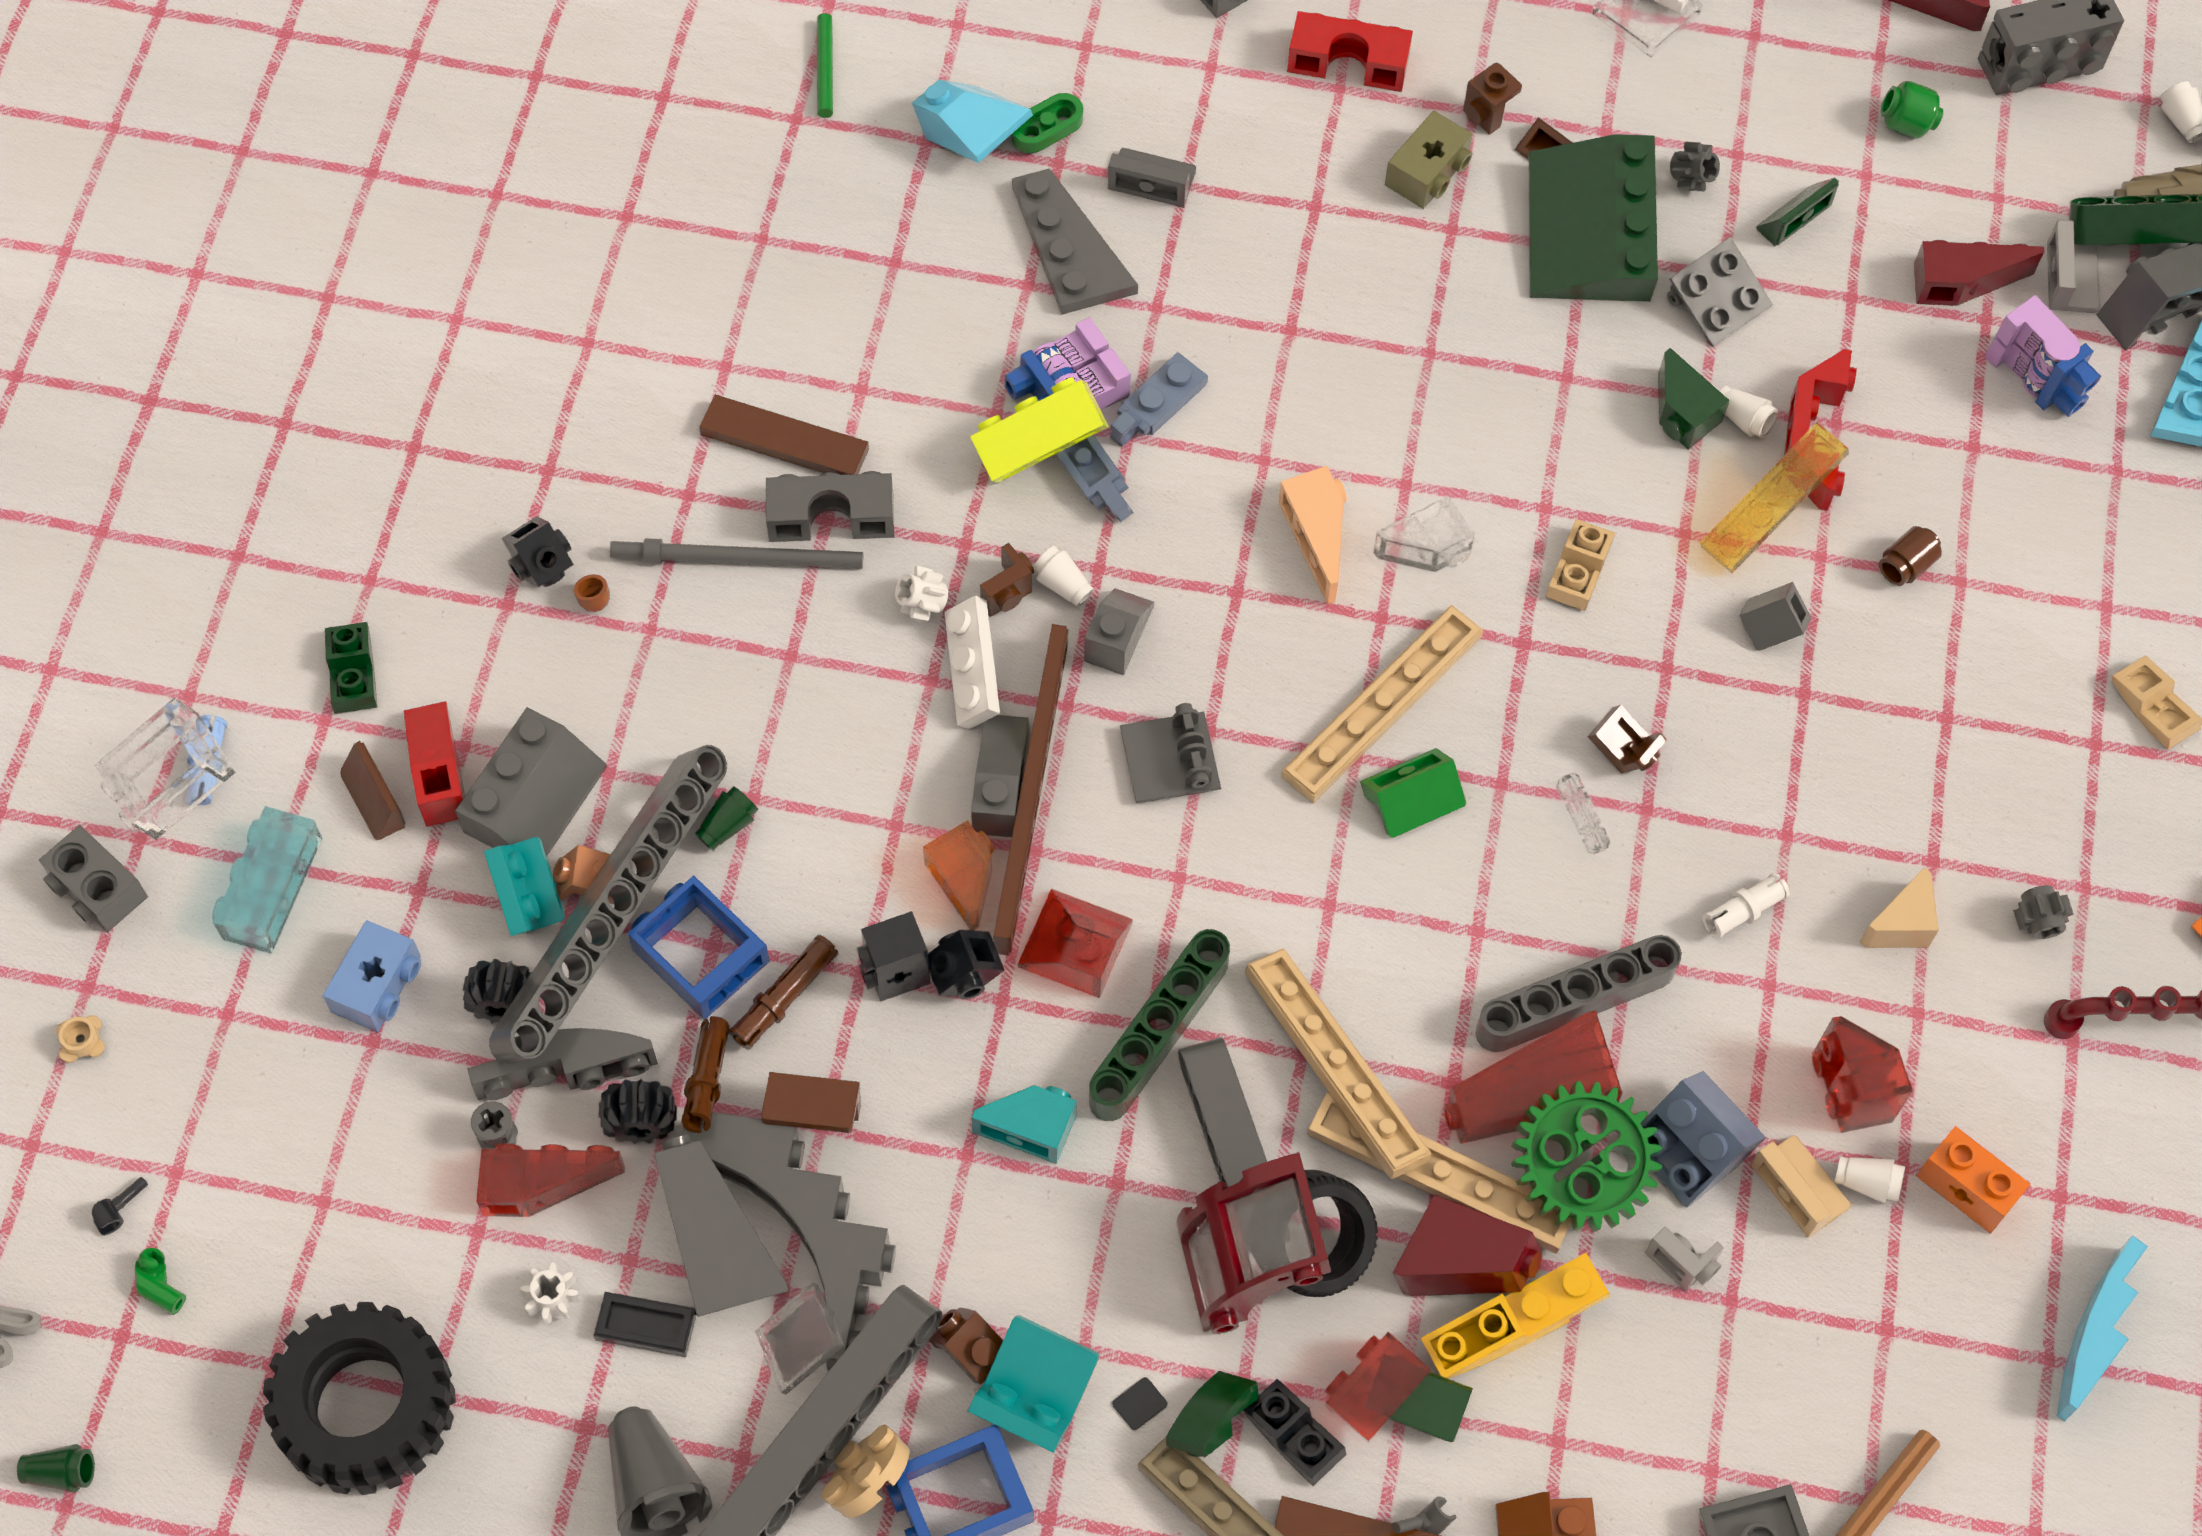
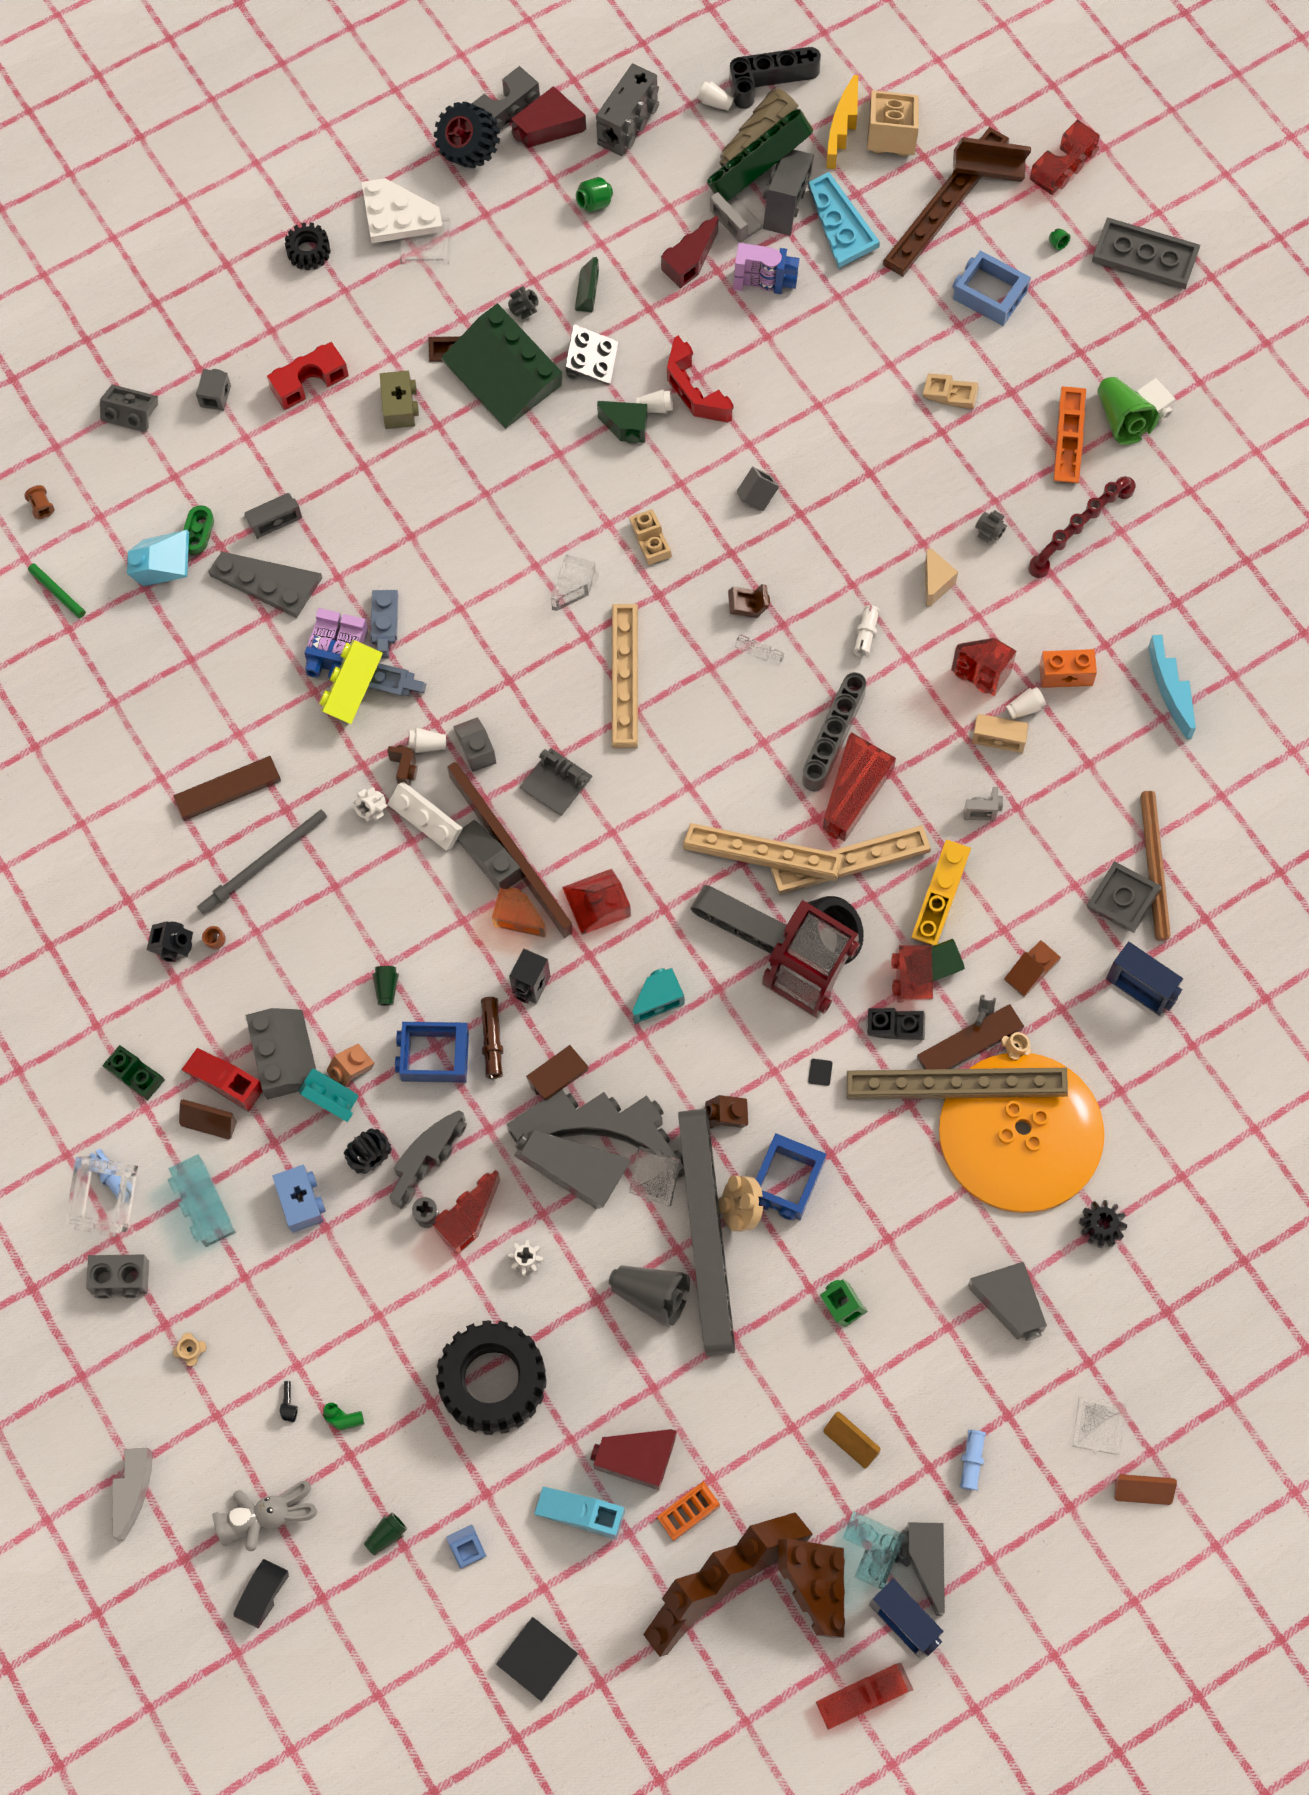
camera: 40 degrees left, 5 degrees up
(596, 912) = (378, 1068): dark grey beam -> none
(637, 1111) = (484, 1146): black gear -> none
(645, 1324) = (578, 1233): black tile -> none
(703, 1086) = (504, 1109): reddish brown pin -> none
(798, 500) = (297, 784): dark grey arch -> none
(964, 963) = (562, 952): black brick -> none
(1035, 1383) = (773, 1102): teal bracket -> none
(1156, 1044) = (671, 915): dark green beam -> none
(1207, 1416) = (857, 1048): dark green slope -> none
(1315, 515) = (513, 614): light nougat slope -> none
(1415, 791) = (678, 702): green panel -> none
(1466, 1253) = (897, 883): dark red slope -> none
(1487, 96) = (397, 344): reddish brown bracket -> none
(1610, 1188) = (884, 792): green gear -> none
(1699, 1136) = (940, 751): sand blue slope -> none
(1774, 497) = (709, 433): clear yellow plate -> none
(1910, 556) = (789, 411): reddish brown brick -> none

